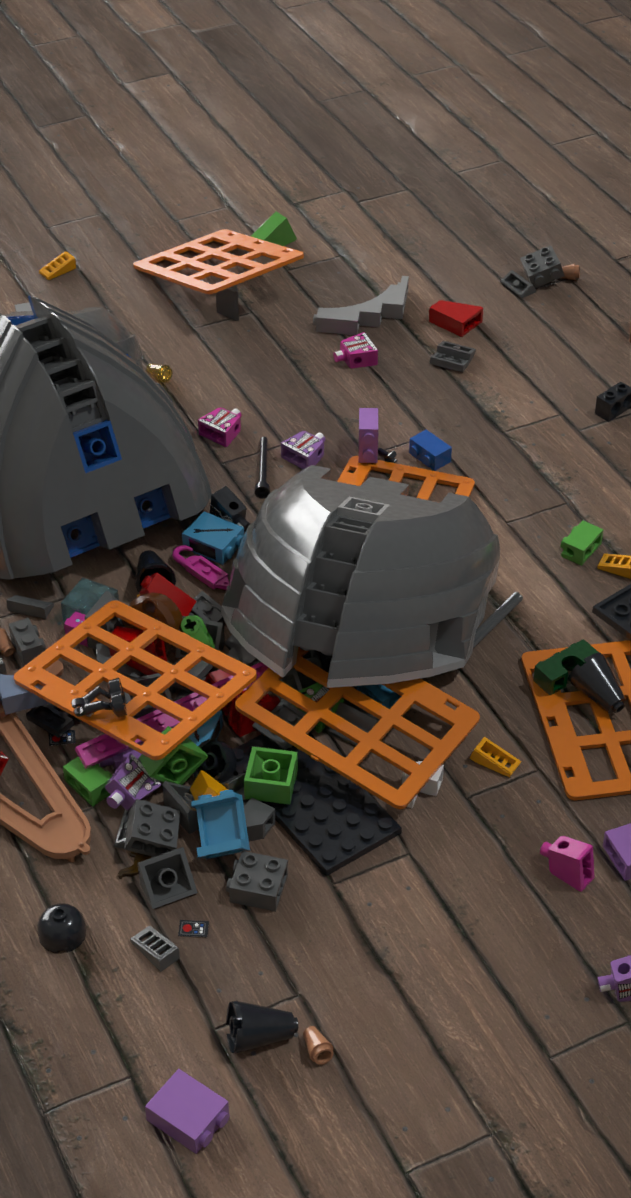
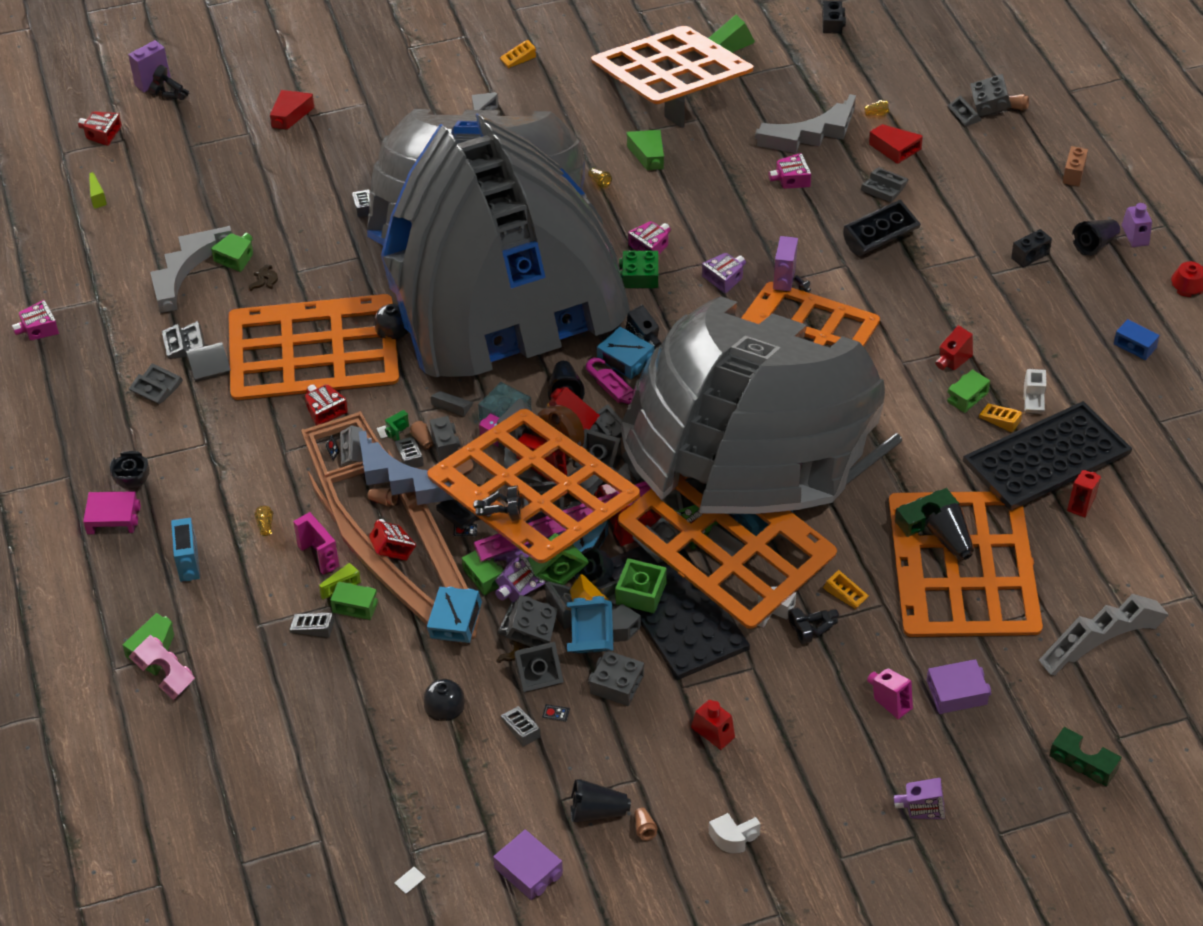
camera: 10 degrees right, 5 degrees up
(46, 1147) = (410, 880): none -> white sticker
(62, 829) = (454, 614): none -> dark azure brick
(199, 631) = (597, 446): bright green piece -> none
(204, 341) = (647, 148): none -> bright green slope
(217, 454) = (639, 269): none -> green brick
(262, 488) = (678, 307): black piece -> none
(371, 210) = (833, 17): none -> black brick
(378, 919) = (714, 724): none -> red torso
(422, 1048) = (732, 837): none -> white brick
(430, 450) = (843, 282): blue brick -> none
(432, 287) = (878, 108): none -> clear yellow cone
(457, 395) = (879, 228): none -> black brick
(458, 804) = (800, 622): none -> black piece
(561, 502) = (955, 349): none -> red torso

